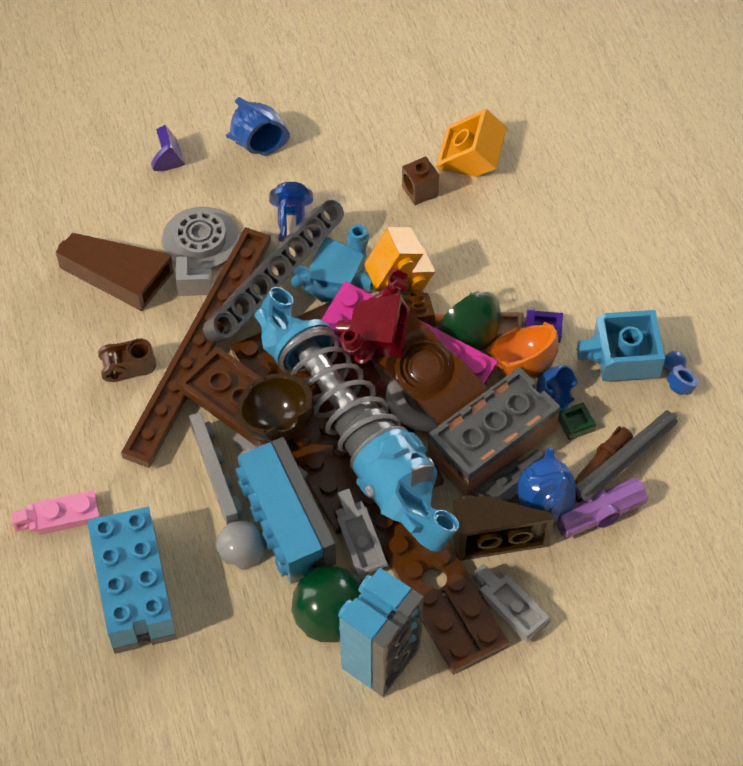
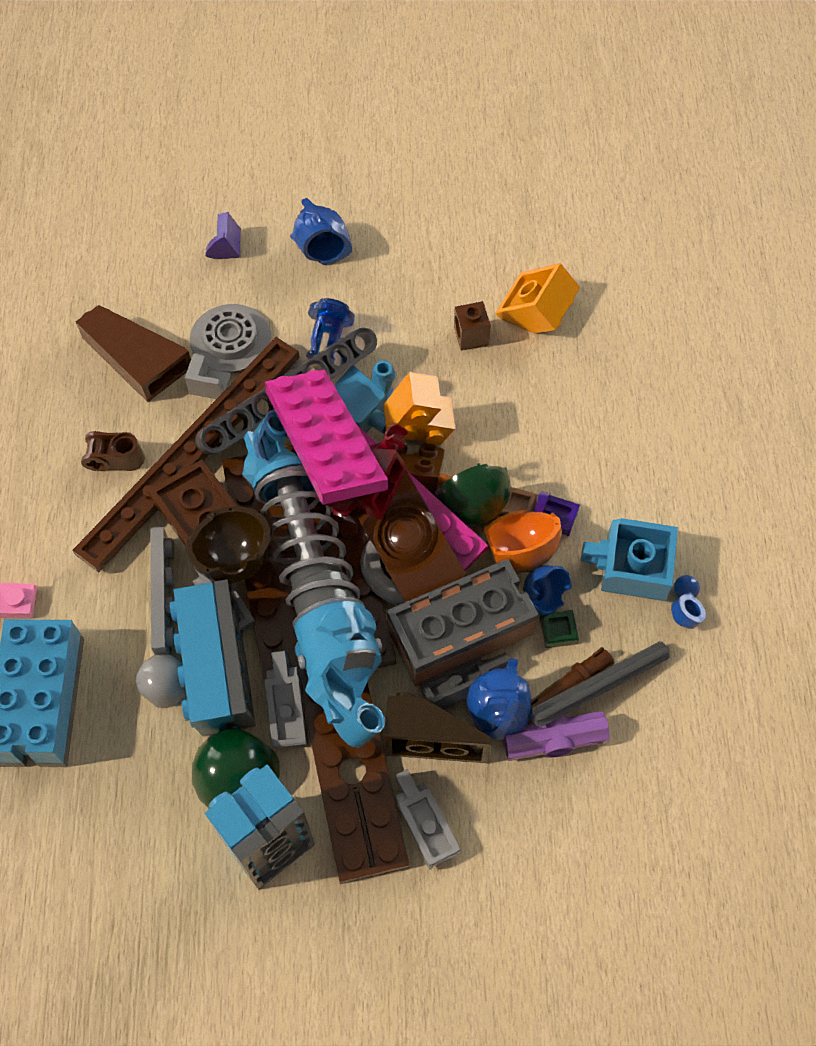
camera: 15 degrees right, 5 degrees up
(332, 296) = (325, 437): none -> dark pink plate

